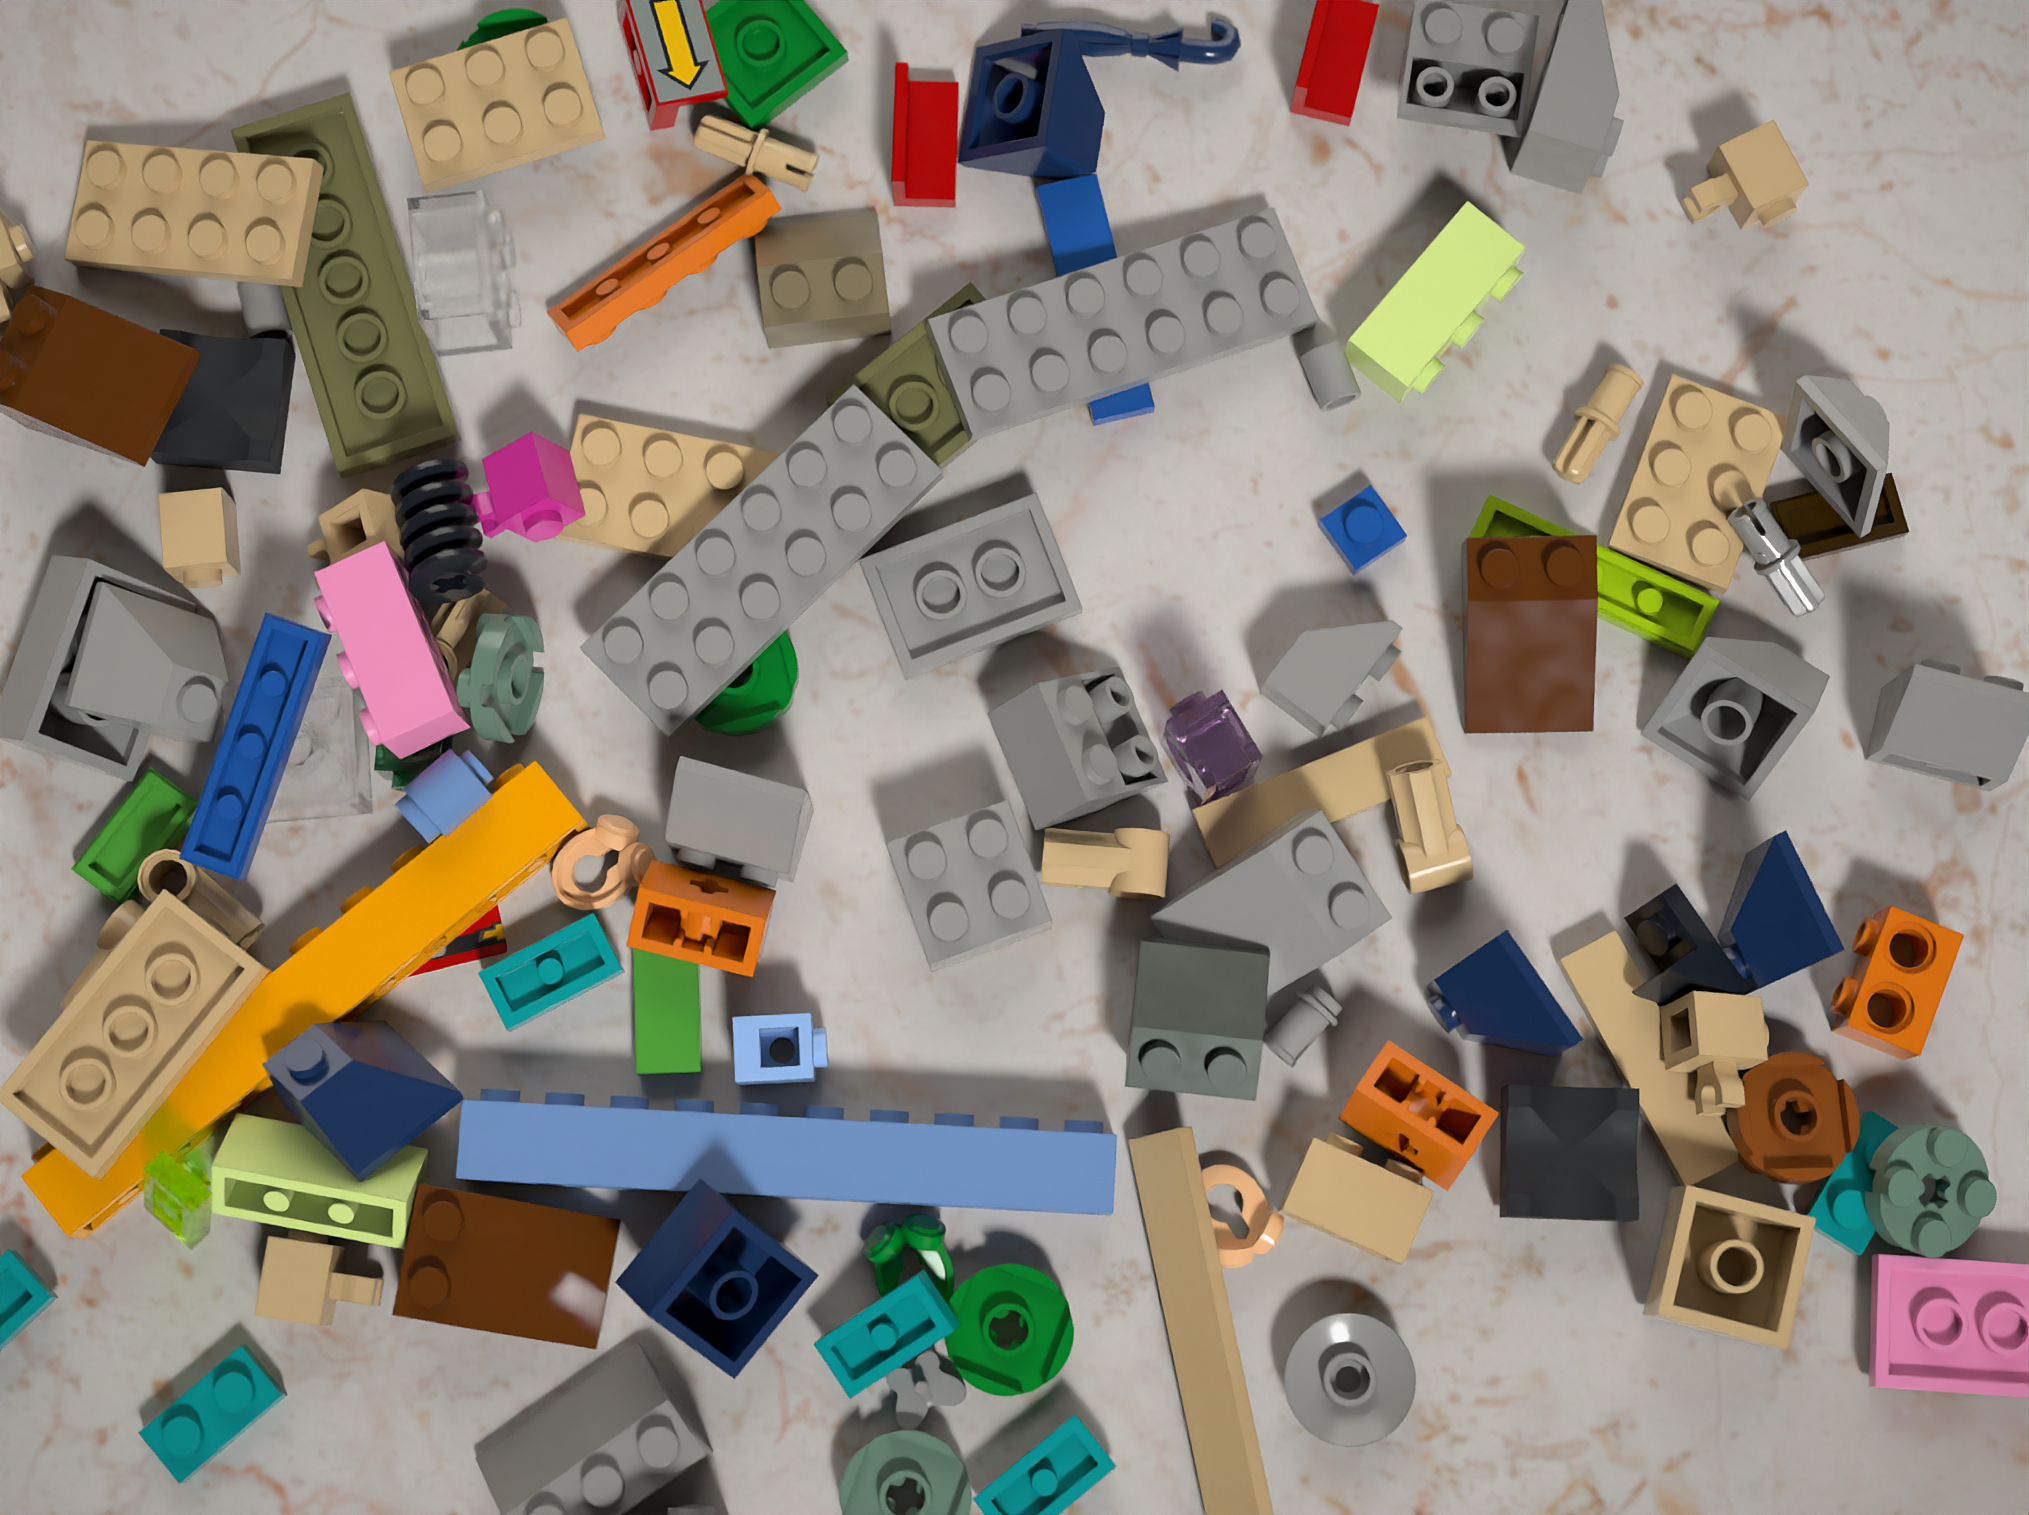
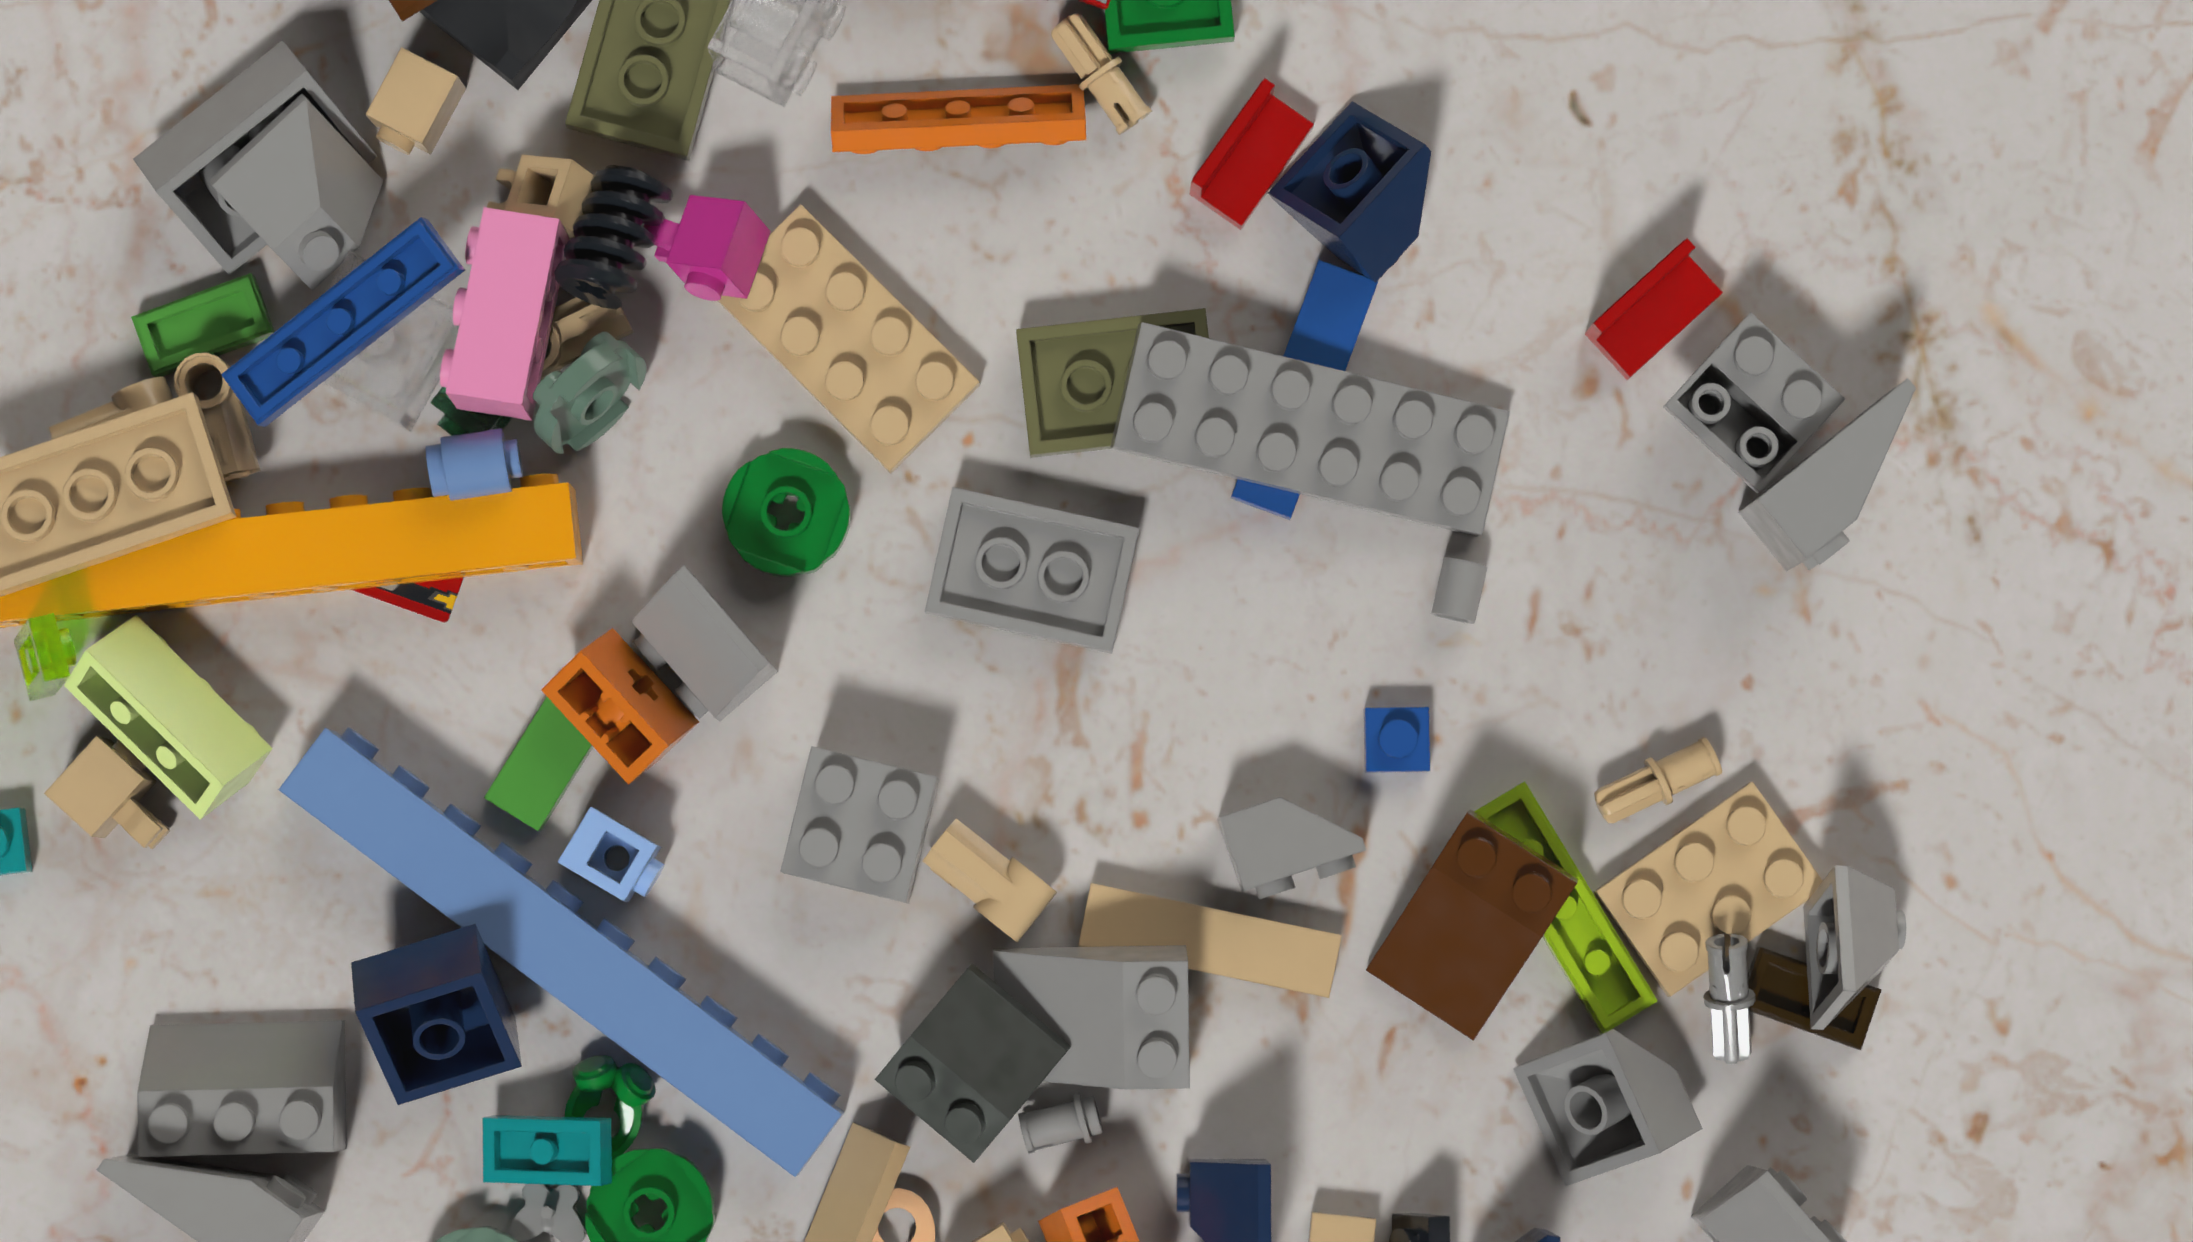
camera: 30 degrees right, 5 degrees up
(360, 1090) = (248, 665): dark blue slope -> none
(506, 1267) = (275, 887): reddish brown slope -> none
(551, 972) = (469, 666): teal plate -> none
(610, 833) = (594, 582): light nougat piece -> none
(762, 562) = (868, 436): light grey plate -> none
(822, 280) = (1083, 220): dark tan slope -> none
(1076, 746) = (1029, 766): light grey slope -> none
(1169, 47) = (1516, 212): dark blue piece -> none
(1209, 746) = (1135, 842): clear purple brick -> none
(1430, 844) = (1271, 1043): tan piece -> none
(1436, 304) = (1590, 588): yellowish green brick -> none
(1751, 177) = (1939, 657): tan brick -> none

